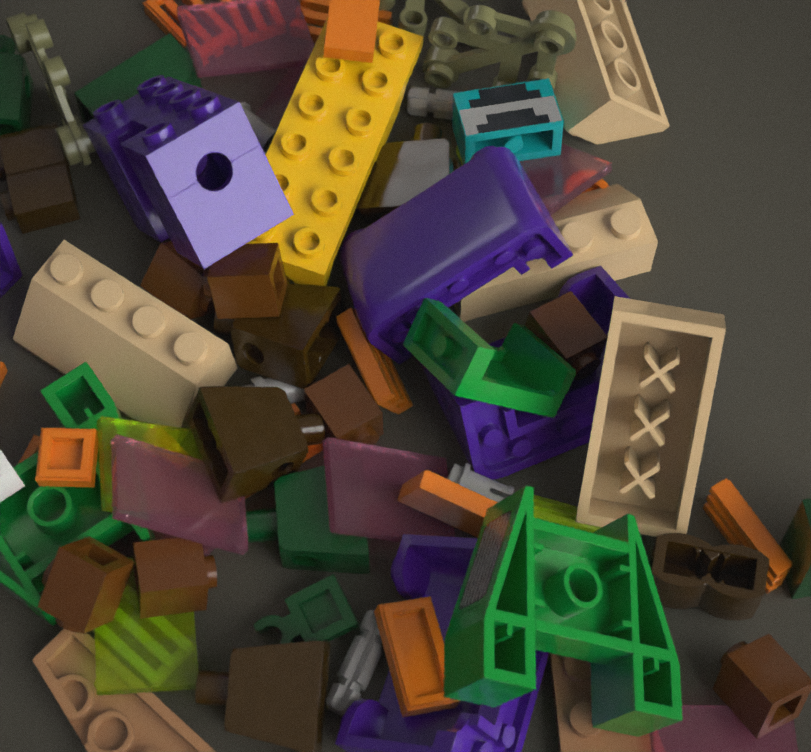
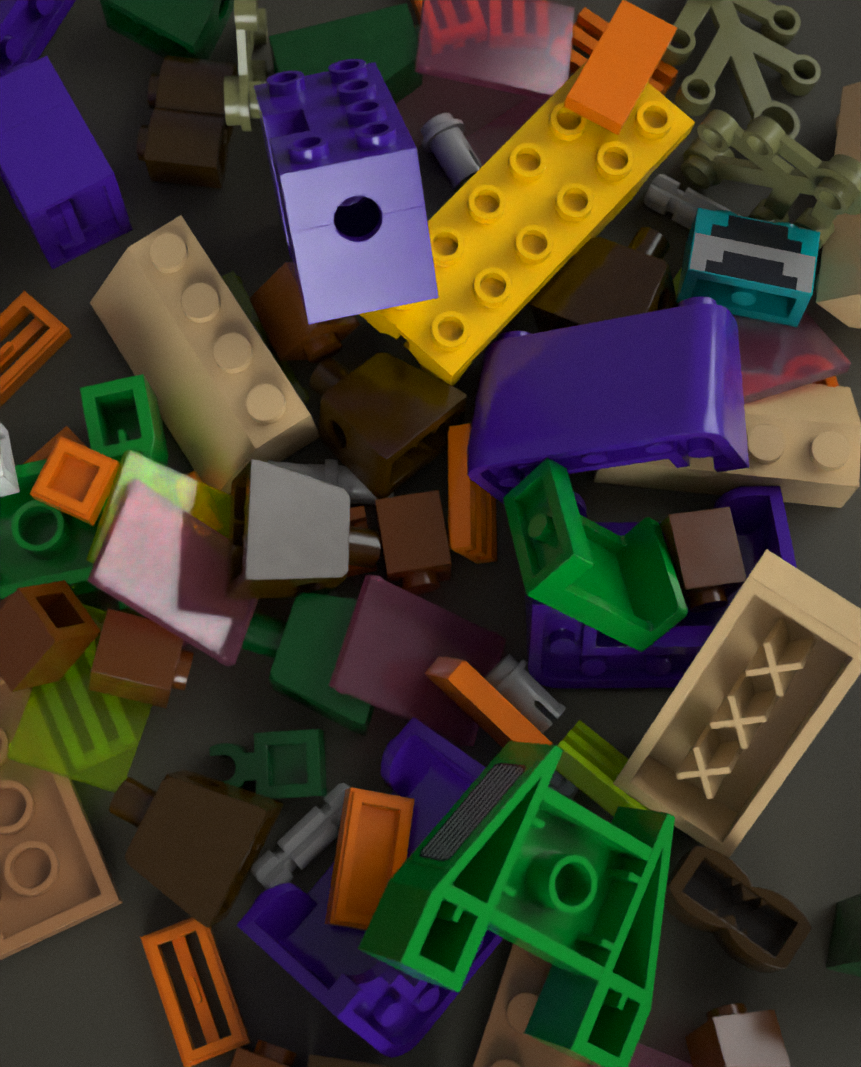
camera: 20 degrees right, 10 degrees up
(247, 282) = (362, 353): reddish brown brick -> none
(743, 527) = (806, 873): orange tile -> none

